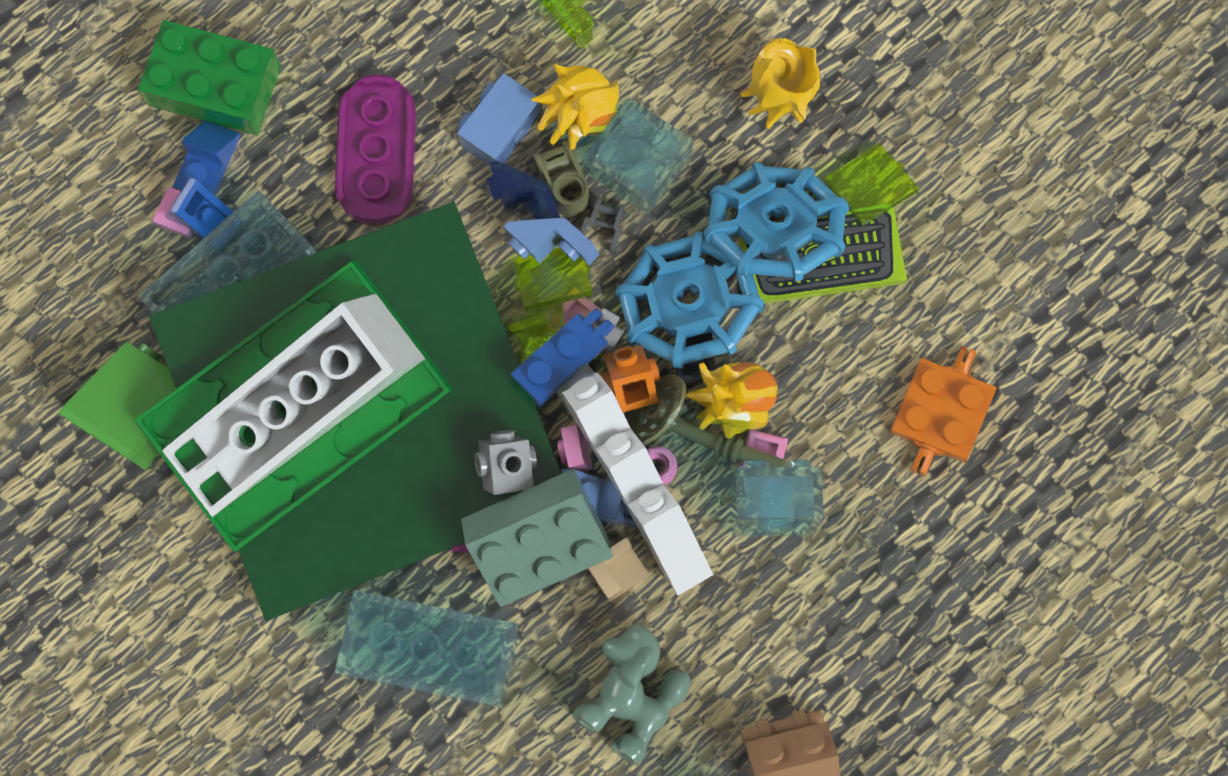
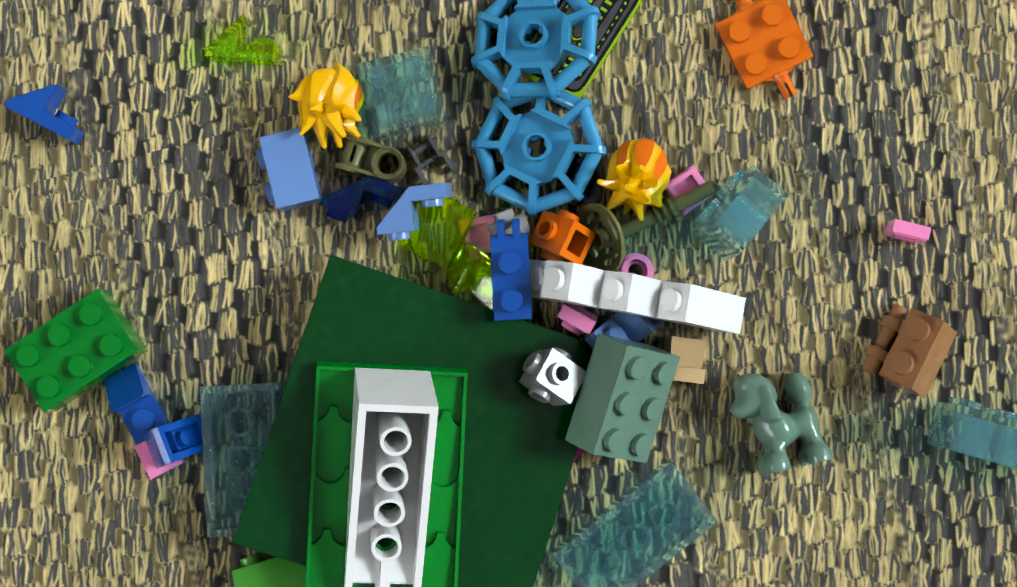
camera: 50 degrees left, 10 degrees up
(375, 150) = (232, 275): magenta tile -> none
(891, 666) = (907, 231): none -> bright pink tile

